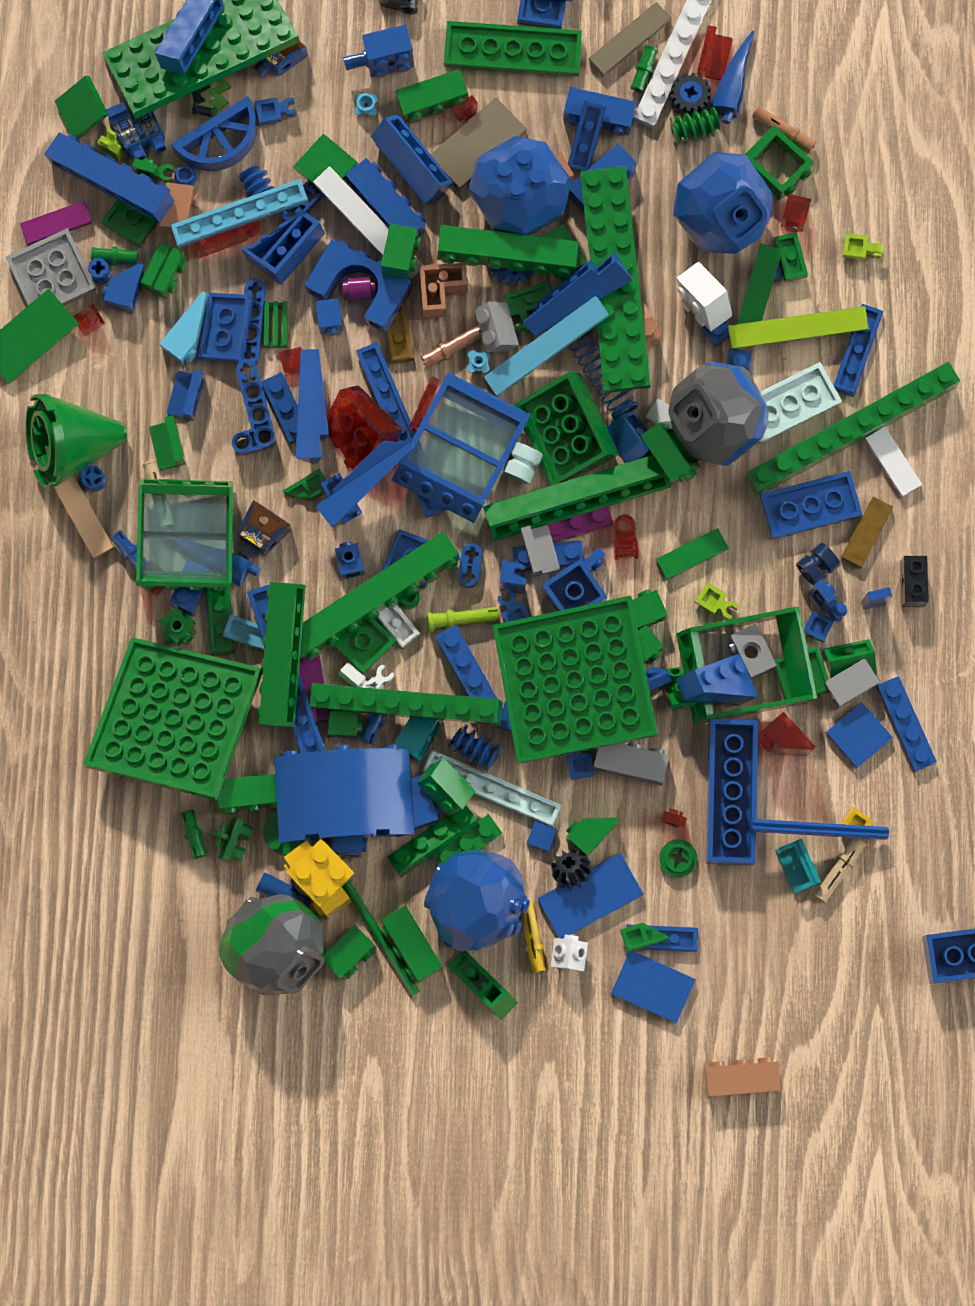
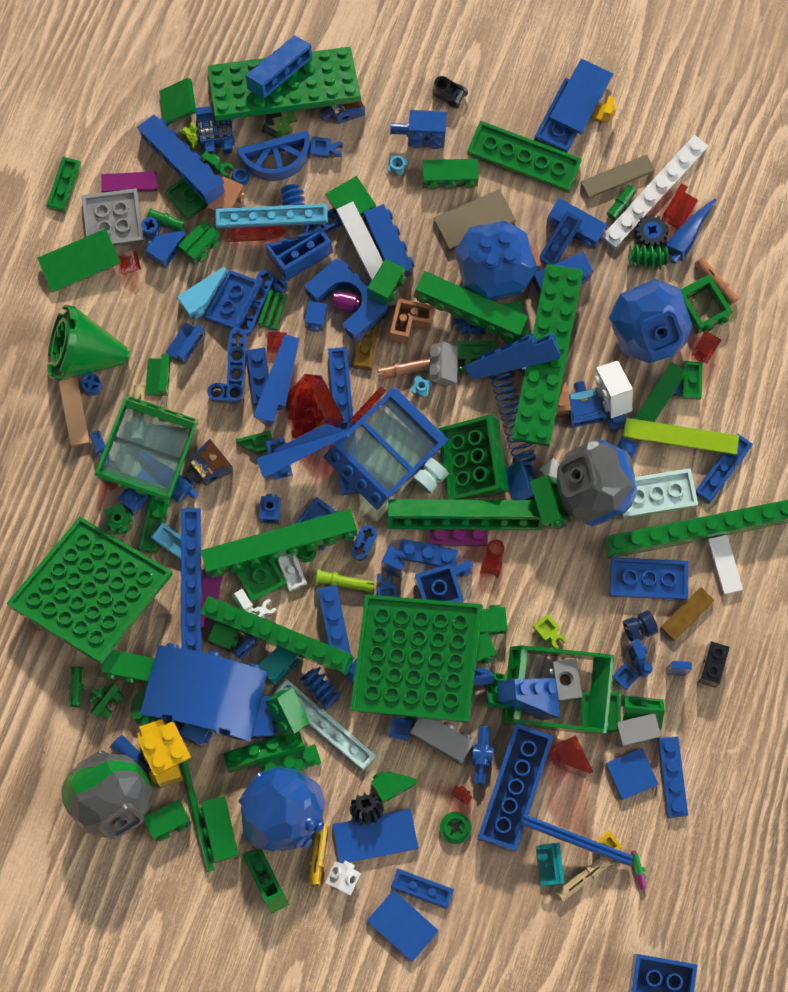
camera: 10 degrees right, 5 degrees down
(271, 296) = (277, 288): none -> blue hinge
(281, 654) = (191, 565): green brick -> none
(411, 159) = (418, 216): blue brick -> none
(466, 109) = (473, 191): clear red plate -> none
(540, 550) = (422, 547): light grey panel -> none
(541, 836) = (351, 775): blue tile -> none
(546, 346) = (478, 390): medium azure tile -> none
(641, 936) = (405, 882): green tile -> none
(676, 326) = (585, 406): none -> blue torso
(682, 767) = (482, 755): none -> blue axle
(692, 554) = (542, 588): green tile -> none
(857, 247) = (748, 387): lime plate -> none
(900, 841) = (639, 870): none -> piece

